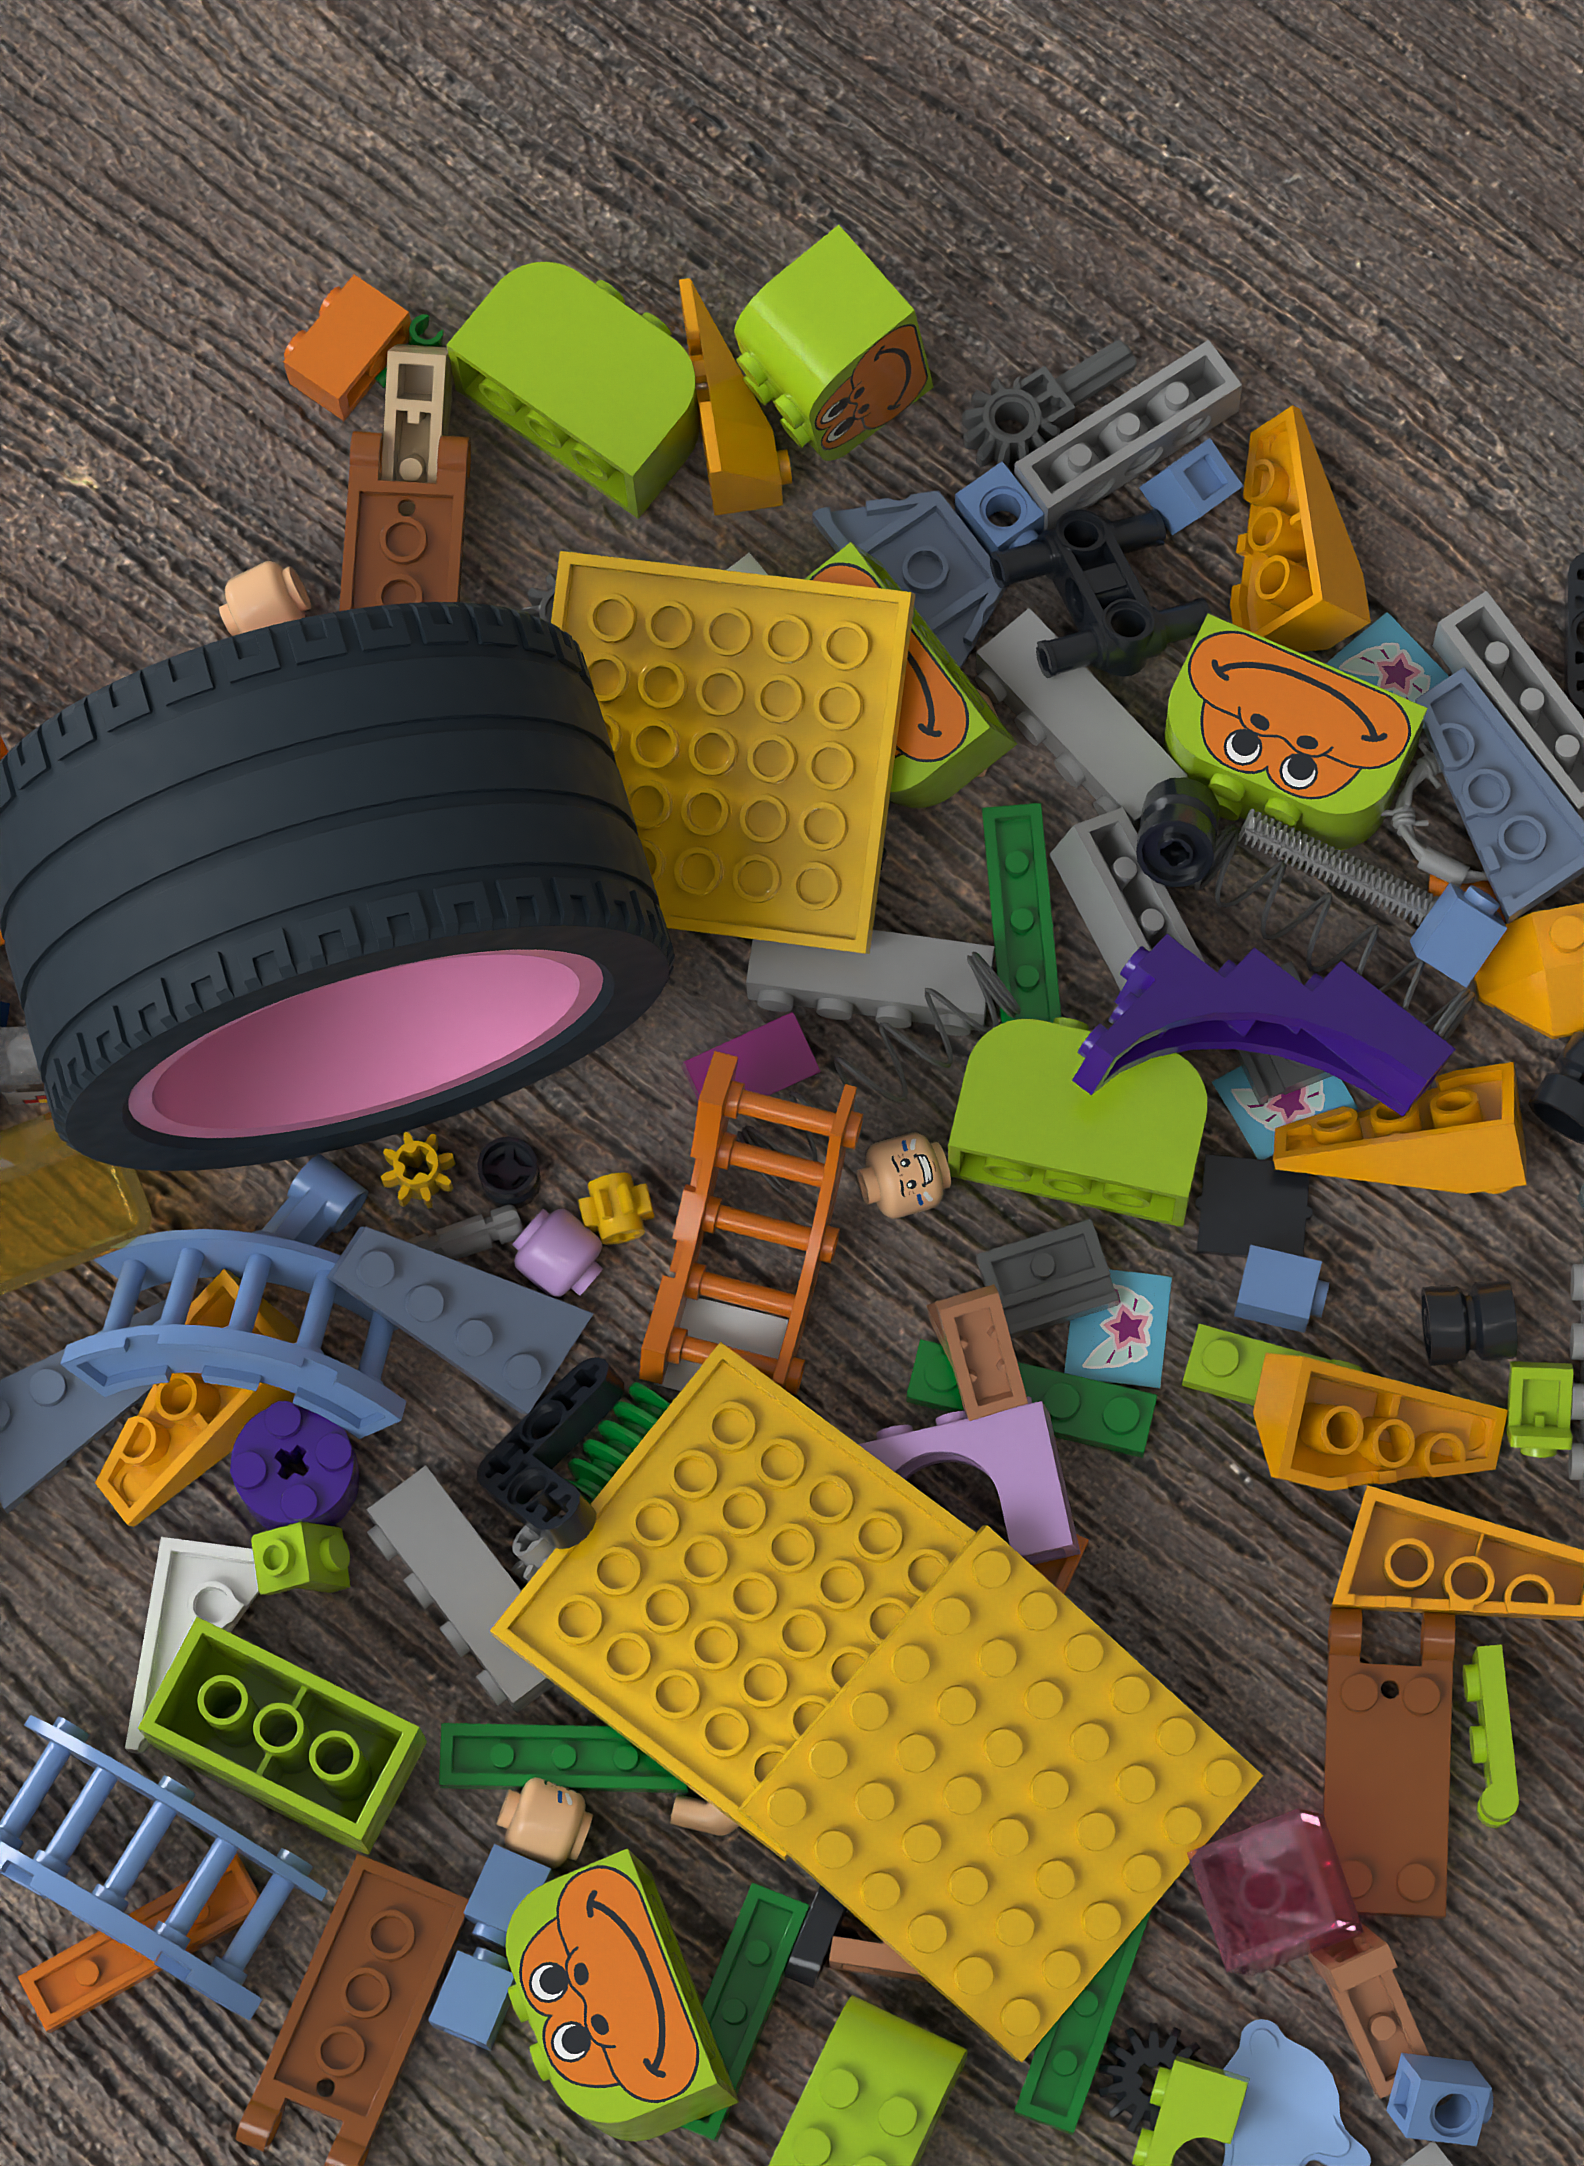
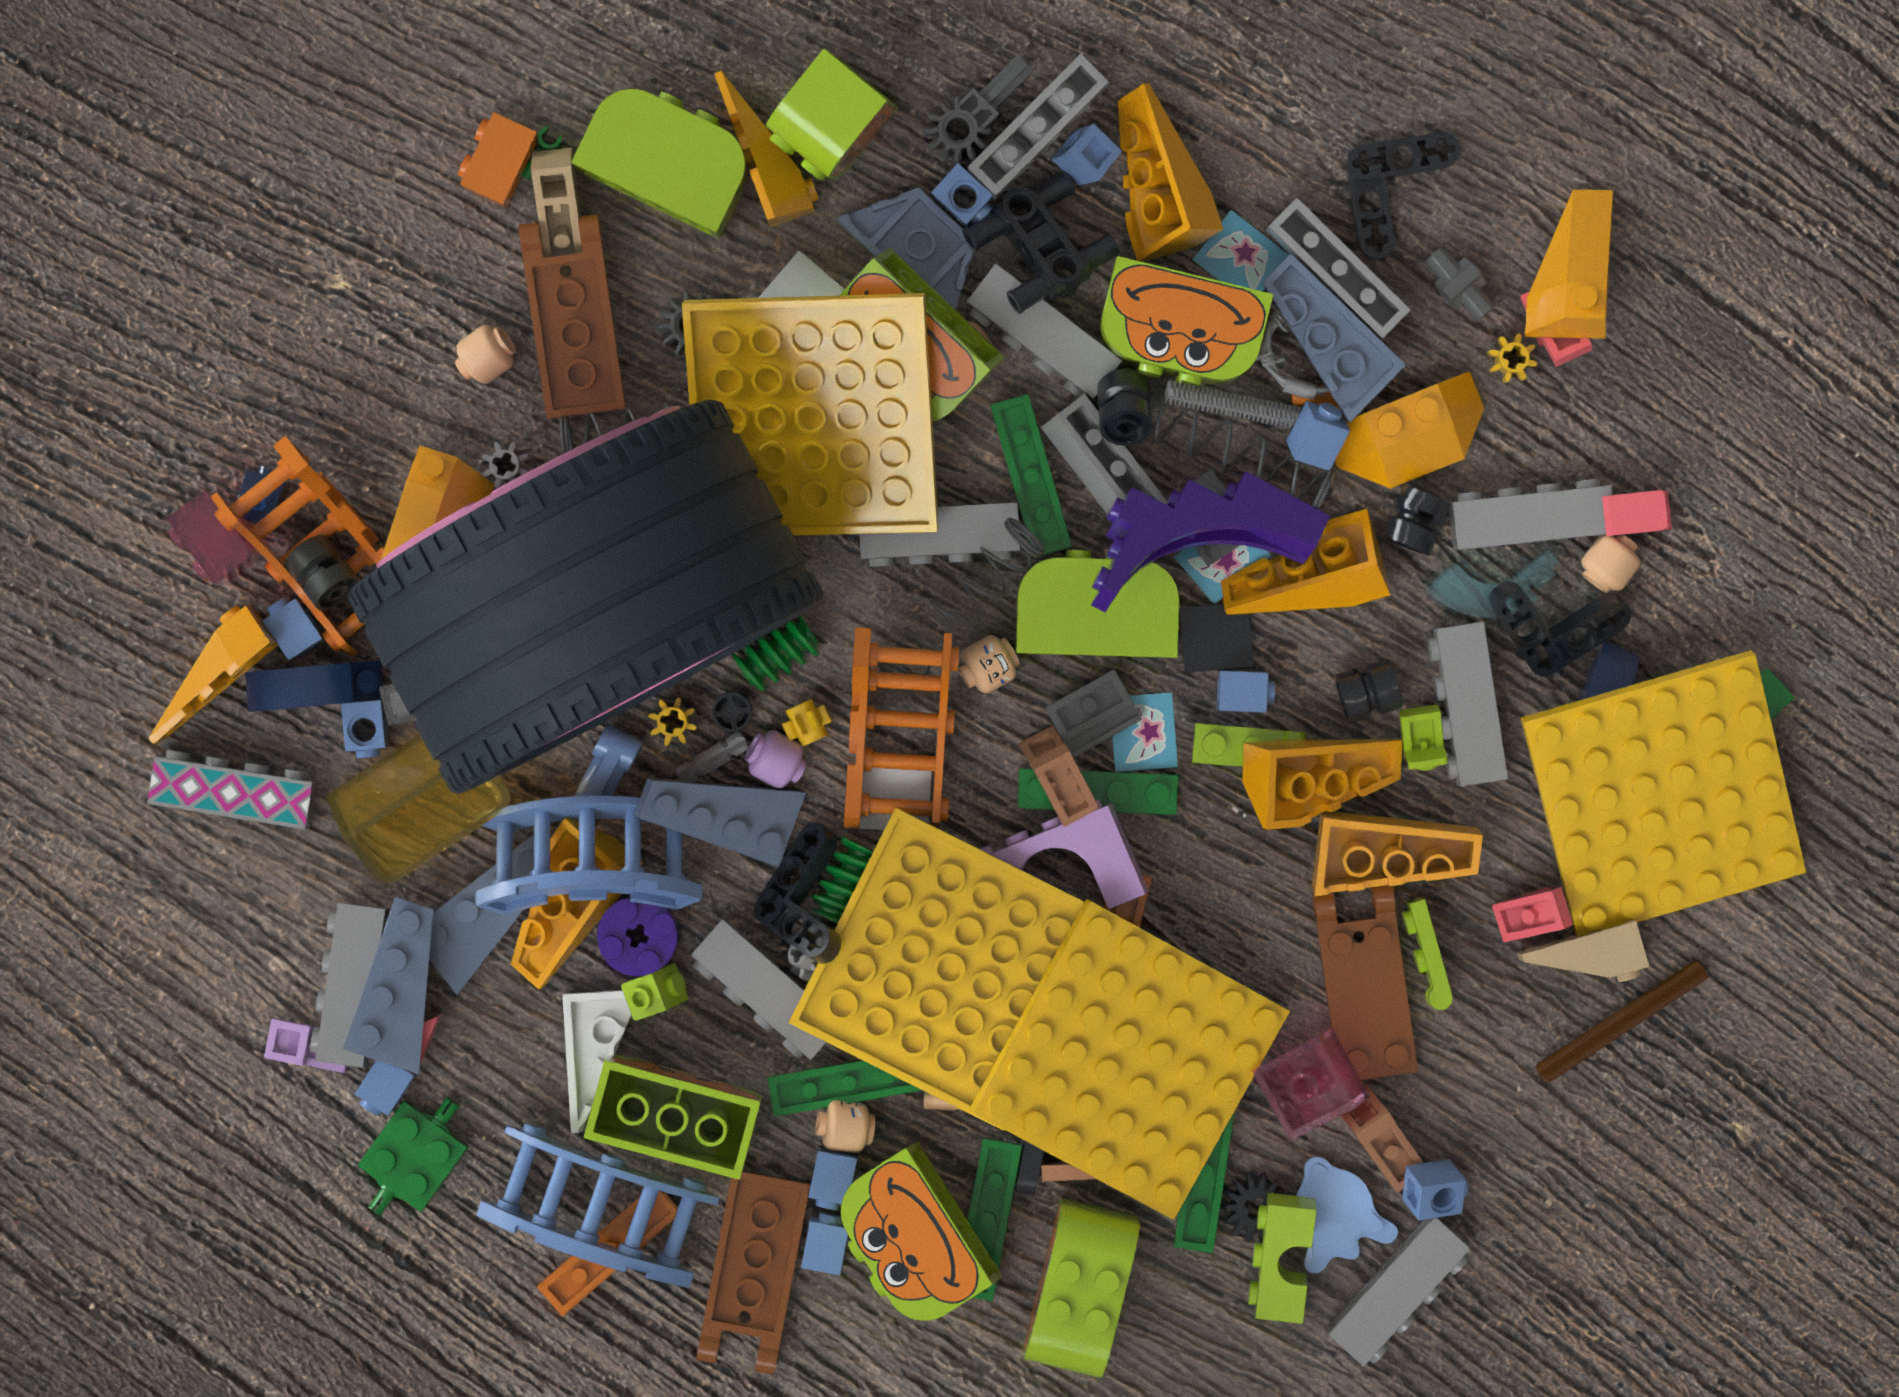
camera: 25 degrees left, 15 degrees up
(594, 1097) = (777, 653): none -> green piece
(767, 1058) = (876, 606): magenta hinge -> none

